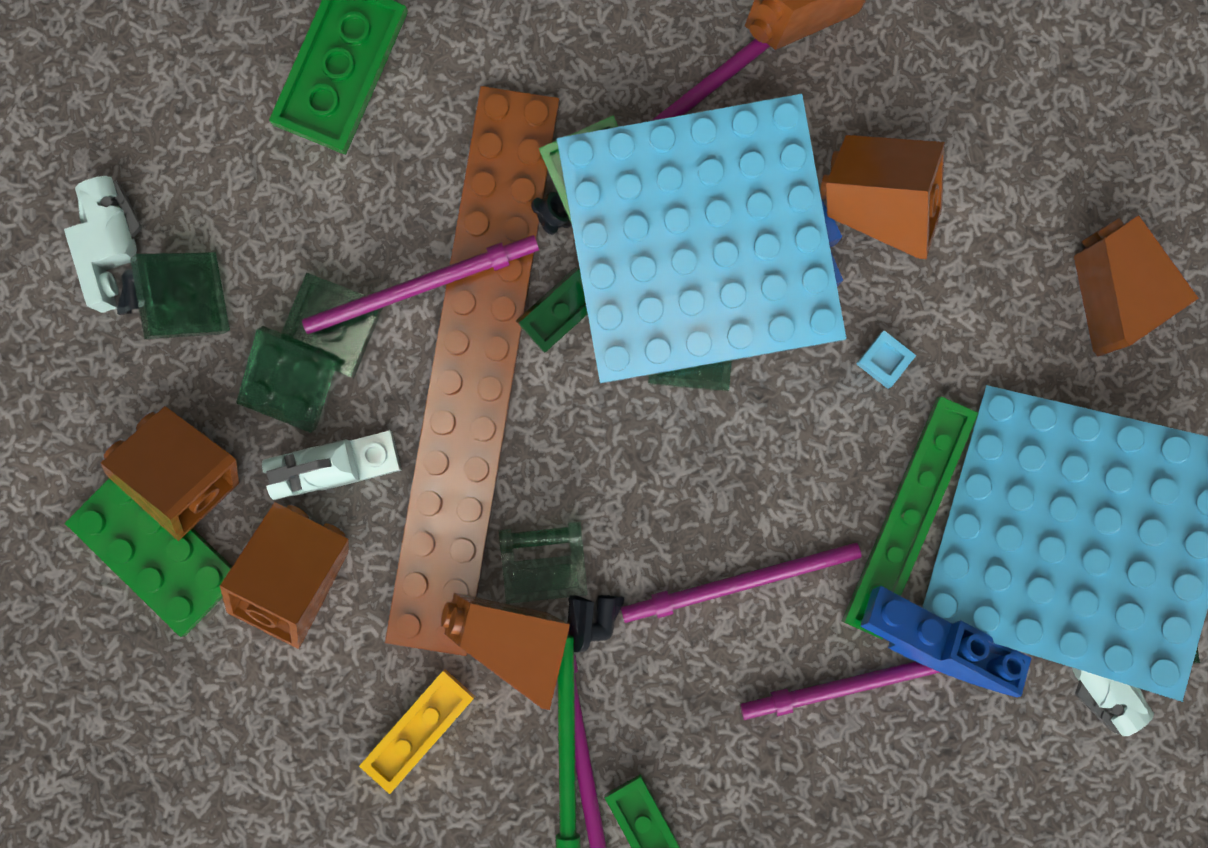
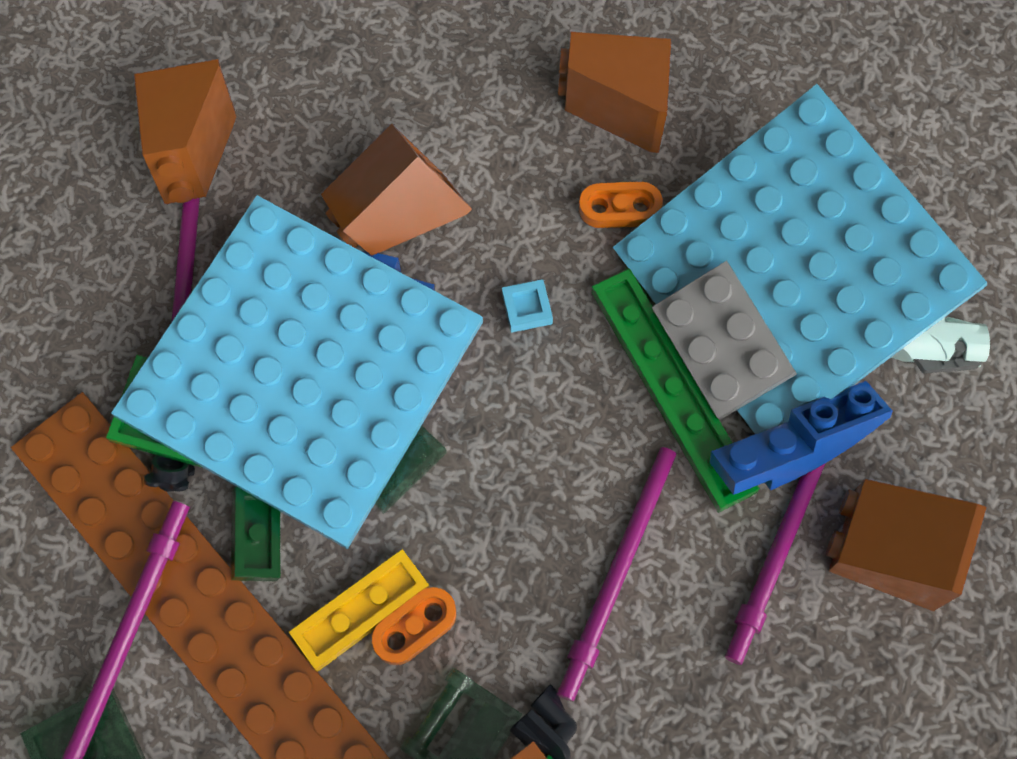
camera: 50 degrees left, 15 degrees down
(567, 426) = (358, 610): none -> yellow plate
(587, 472) = (414, 626): none -> orange plate
(927, 776) = (906, 542): none -> dark orange slope
(976, 528) = (724, 340): none -> light grey plate
(1028, 359) = (619, 202): none -> orange plate

